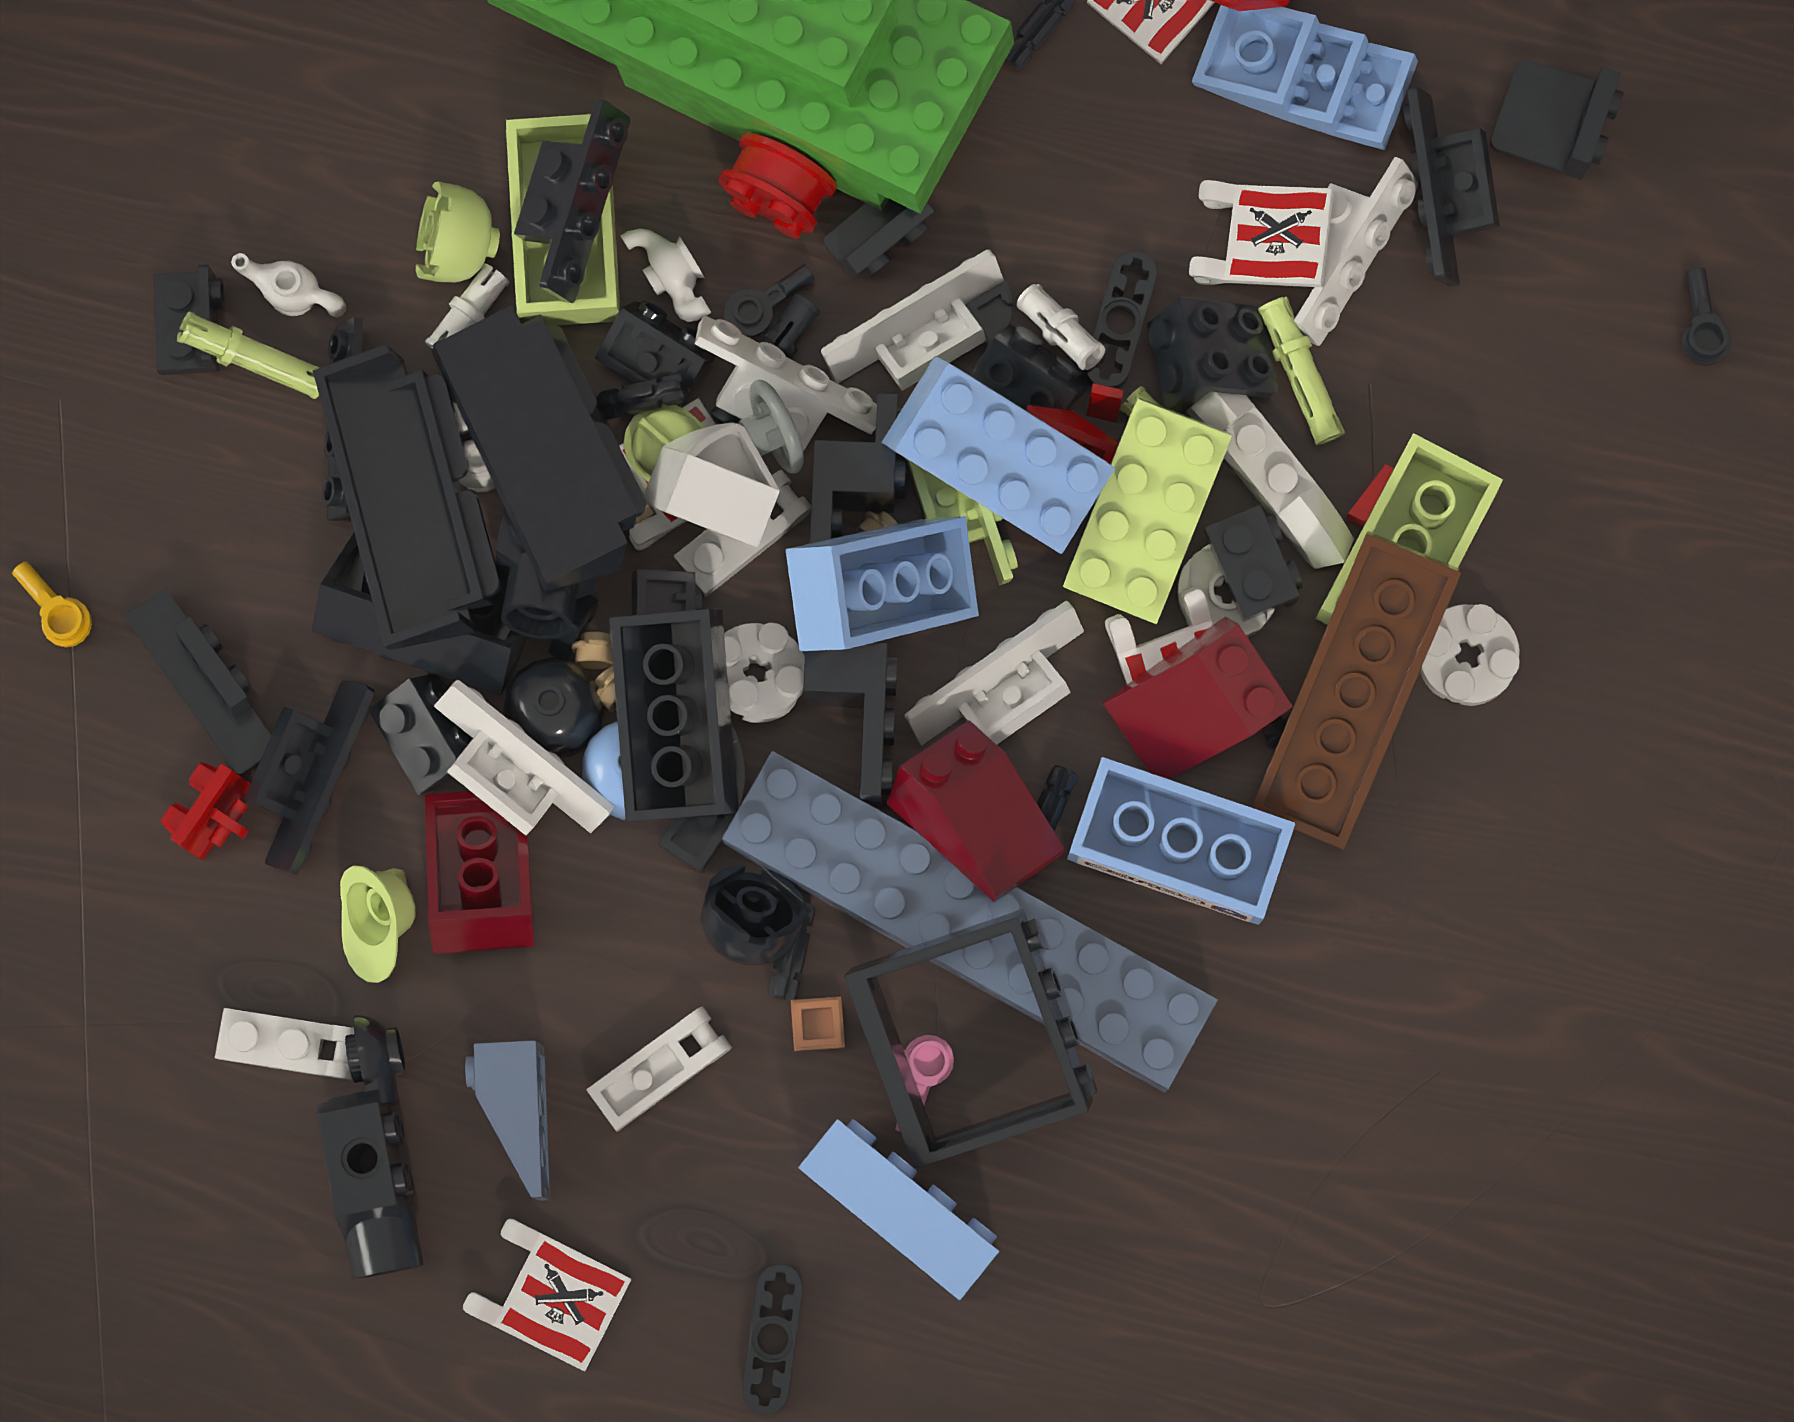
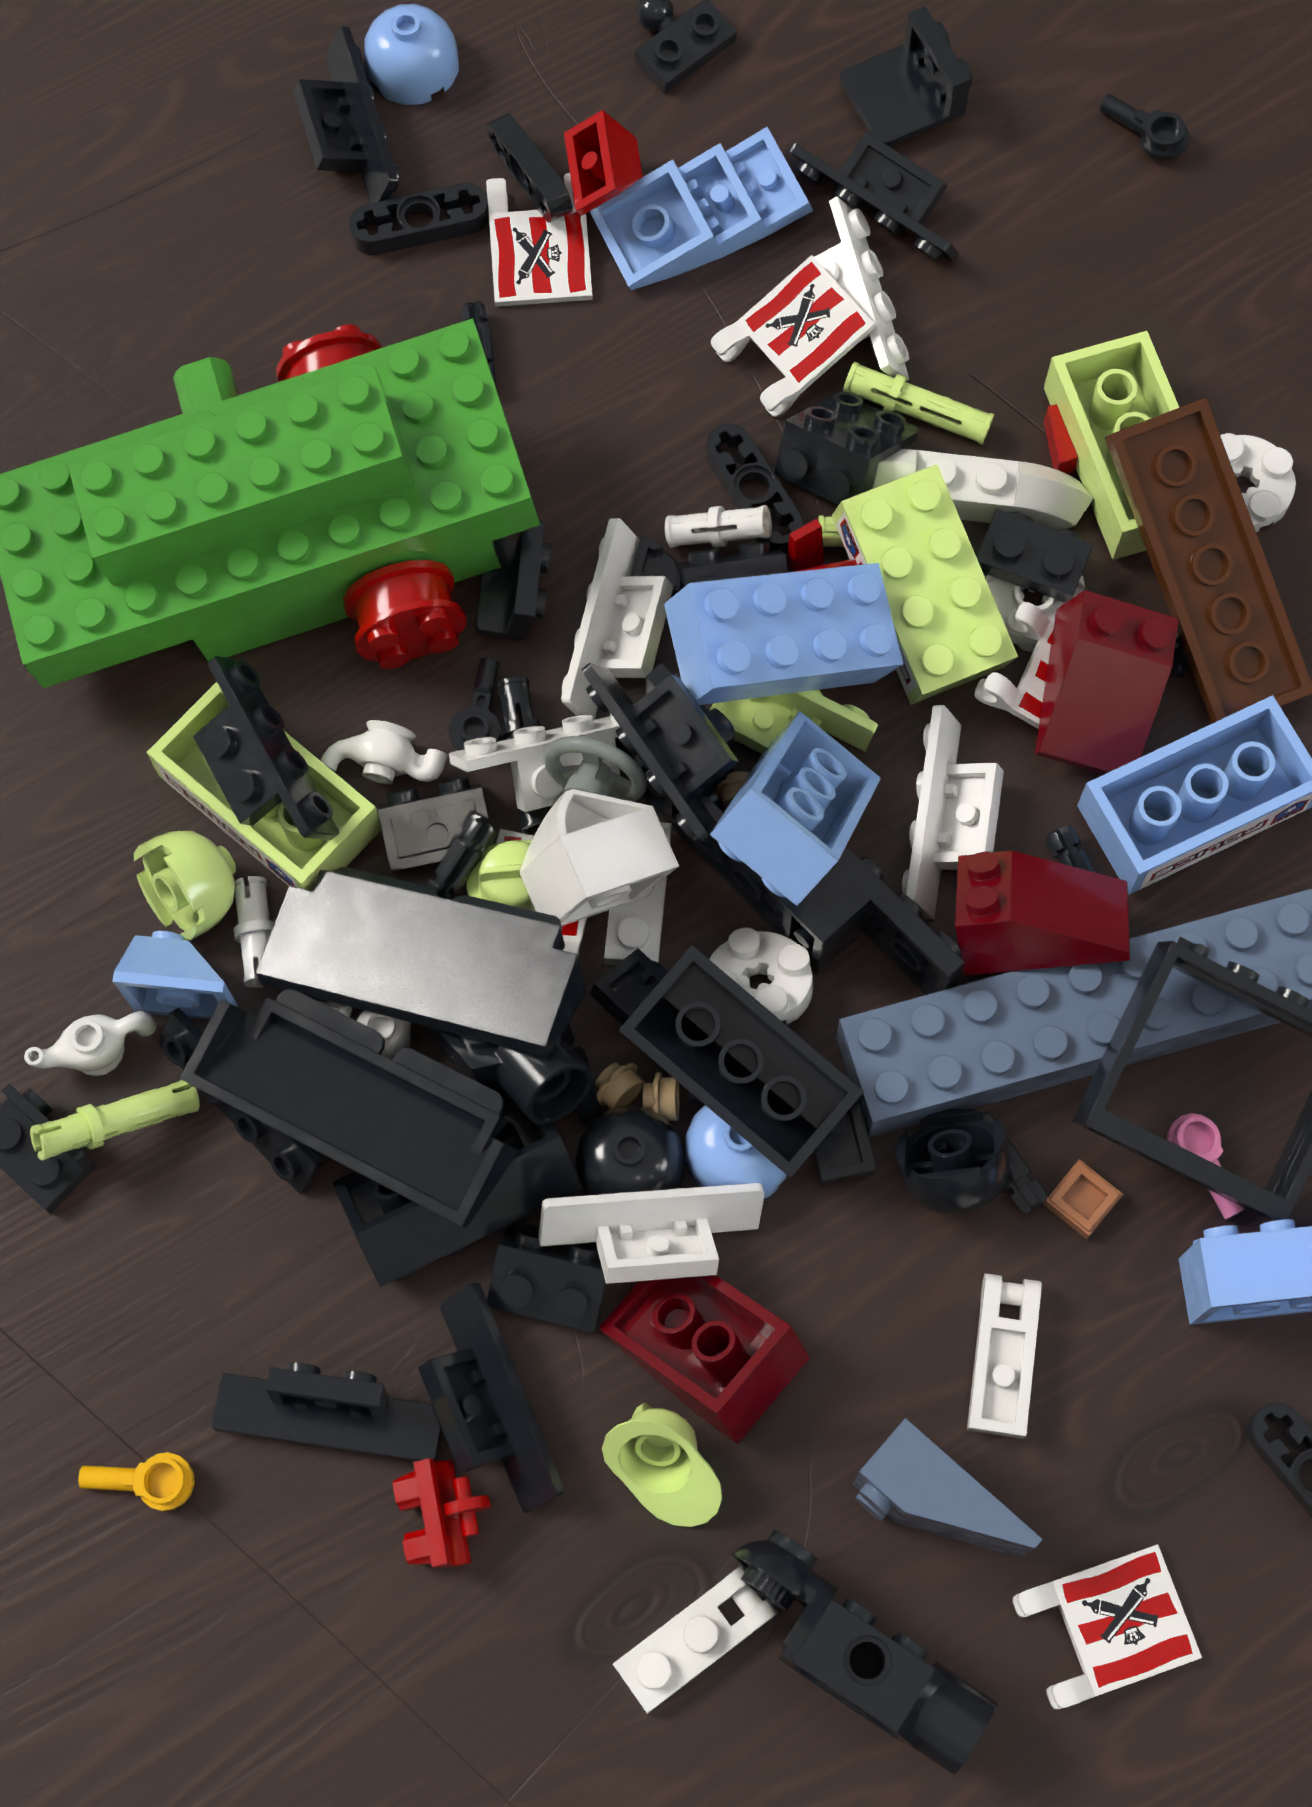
camera: 45 degrees left, 10 degrees down
(380, 291) = (168, 974): none -> light blue slope
(838, 455) = (673, 740): none -> black bracket

